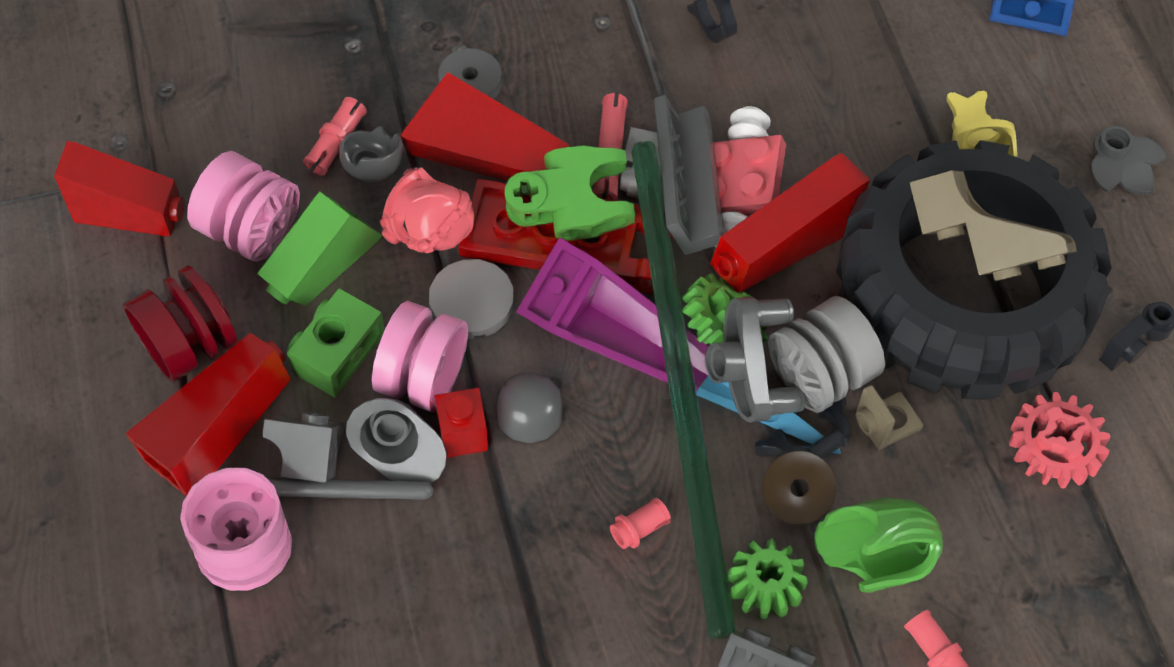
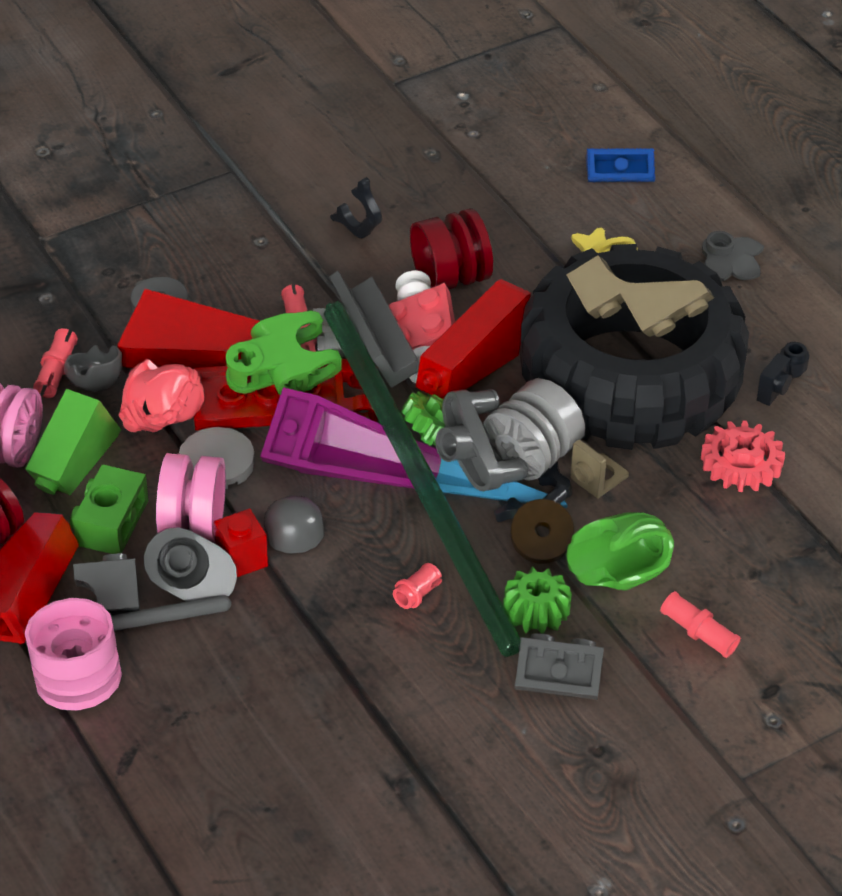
camera: 15 degrees left, 15 degrees down
(809, 91) = (452, 249): none -> dark red wheel

